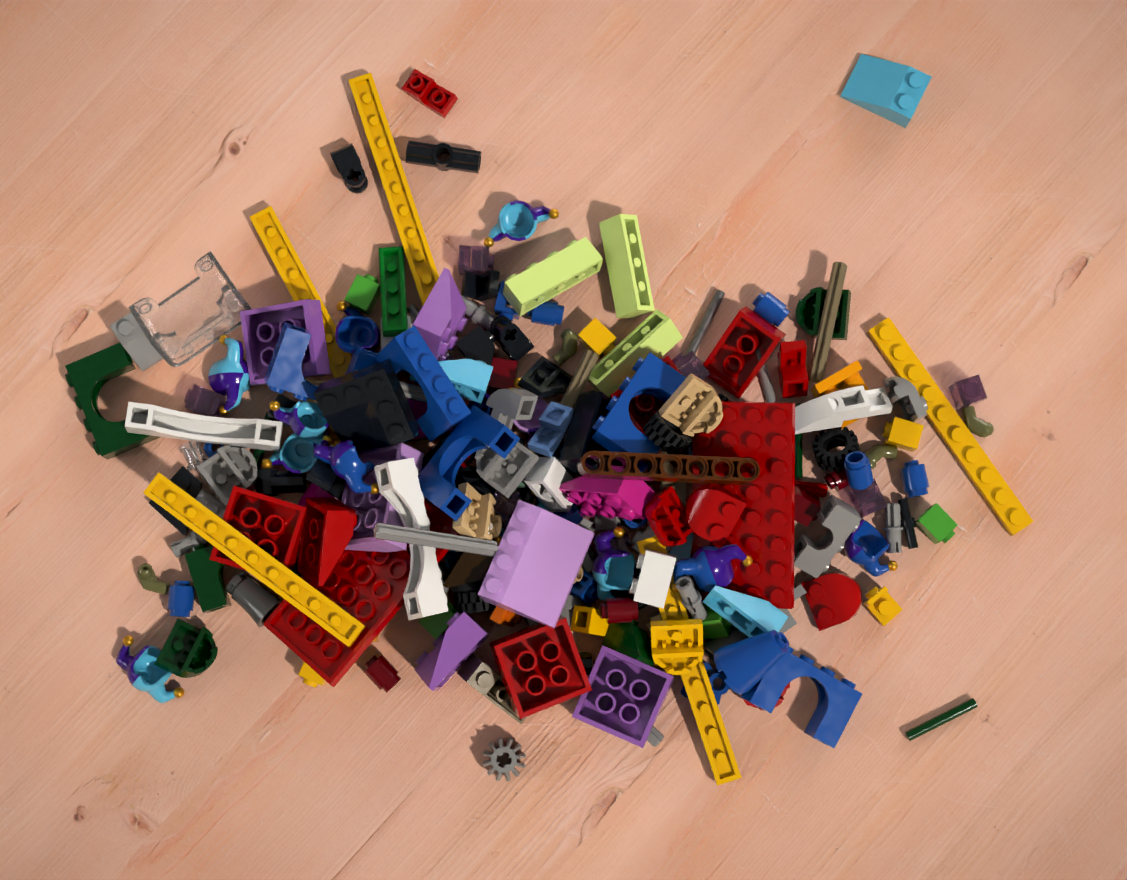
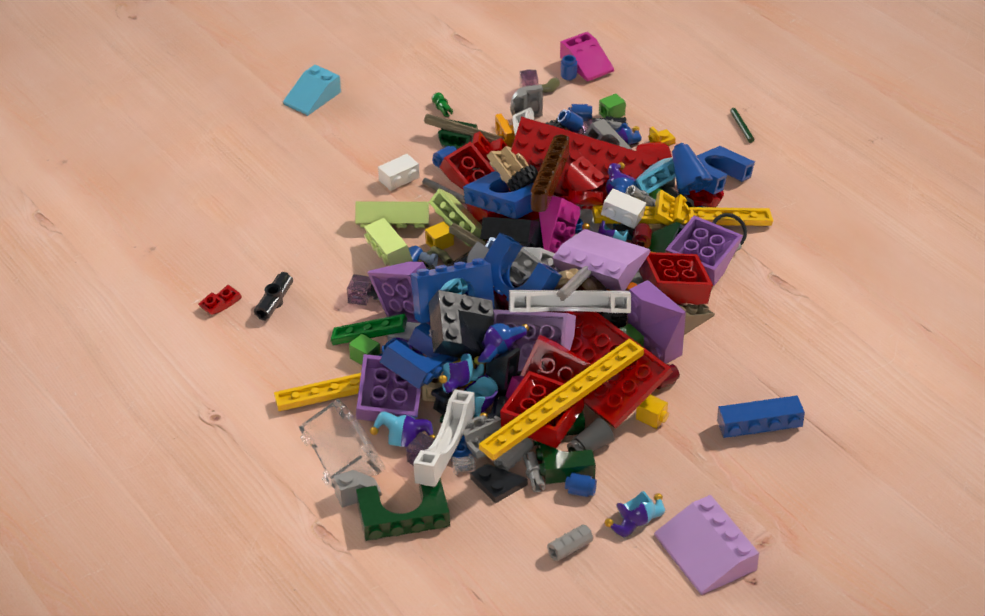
camera: 80 degrees left, 40 degrees down
(91, 600) = (570, 542): none -> light grey axle
(110, 759) = (708, 545): none -> lavender slope
(149, 581) = (558, 508): olive arm -> none
(187, 650) = (624, 482): dark green slope -> none
(324, 803) = (760, 416): none -> blue brick
(350, 166) = (260, 347): black piece -> none
(395, 184) = (282, 324): yellow plate -> none
(500, 751) = (740, 319): light grey gear -> none
(518, 221) = (340, 260): medium azure piece -> none
(544, 334) = (431, 259): none -> sand blue wheel
(697, 717) = (738, 219): none -> black piece
(723, 254) = (398, 172): none -> white brick
(902, 434) = (548, 111): yellow brick -> none
(905, 270) = (441, 104): none -> green pin
(951, 428) = (553, 96): yellow plate -> none
(1021, 443) = (569, 67): none -> blue brick
(1050, 466) = (589, 55): none -> dark pink slope

